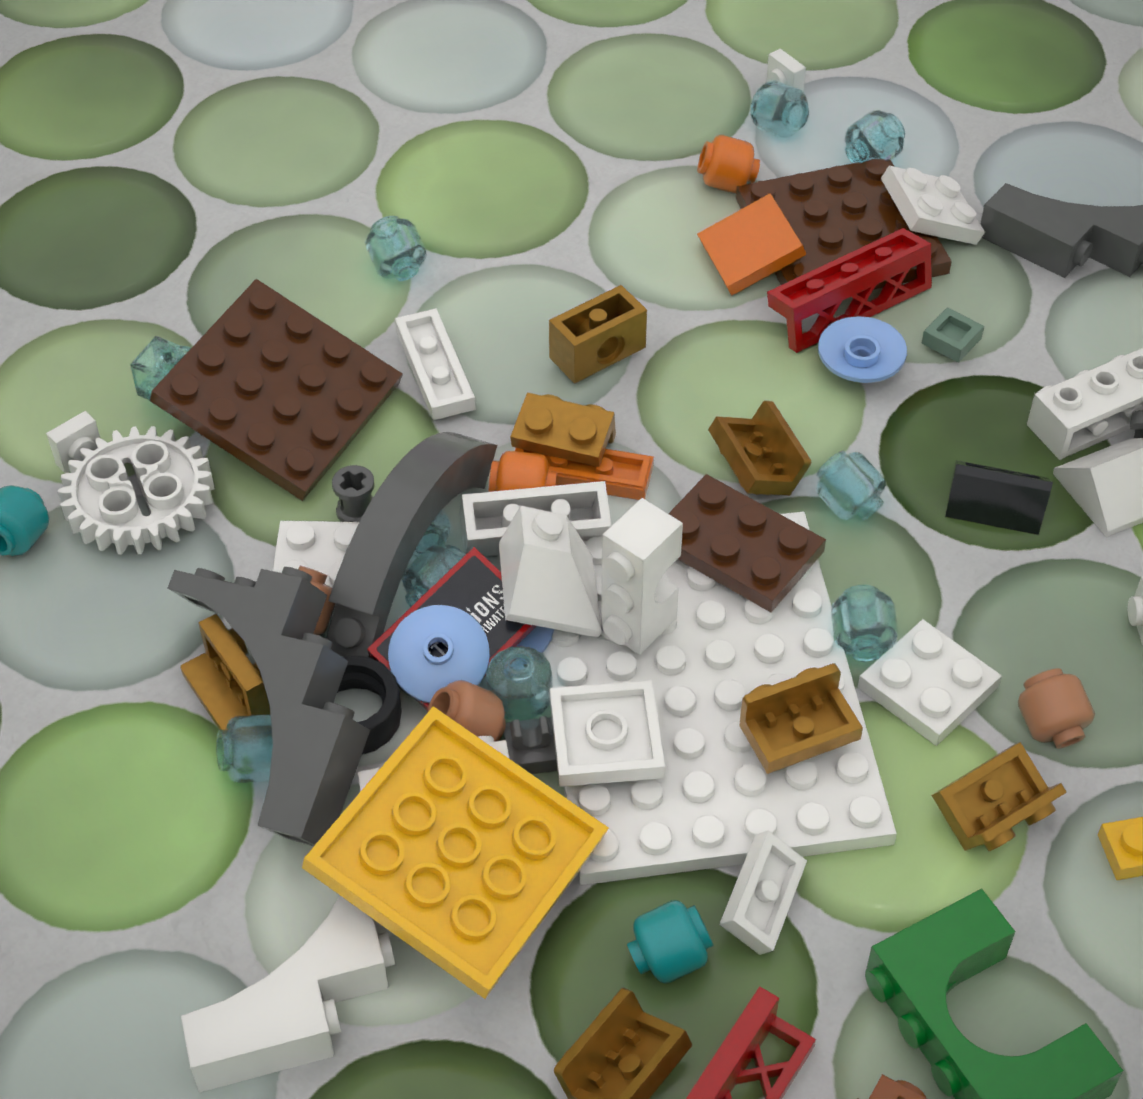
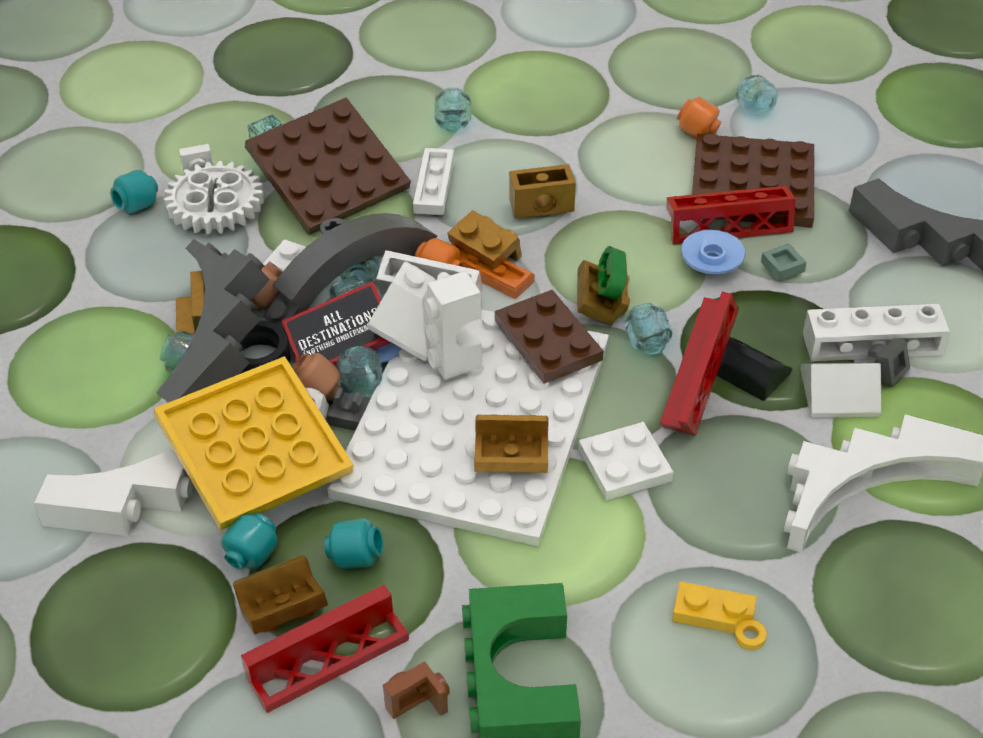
camera: 25 degrees right, 5 degrees down
(424, 674) = (335, 339): light blue dish -> none
(530, 997) = (249, 541): none -> teal head
(606, 733) = (388, 413): white plate -> none
(751, 244) = (680, 169): orange tile -> none
(763, 892) = (430, 538): white plate -> none
(766, 424) = (612, 273): none -> green beam
(785, 69) = (775, 74): white plate -> none
(864, 621) = (600, 409): clear light blue head -> none
(874, 137) = (809, 128): clear light blue head -> none
(932, 205) = (821, 179): white plate -> none
(962, 517) = (700, 364): none -> red fence
(995, 798) = (617, 539): pearl gold bracket -> none
(1056, 708) = (694, 502): nougat head -> none

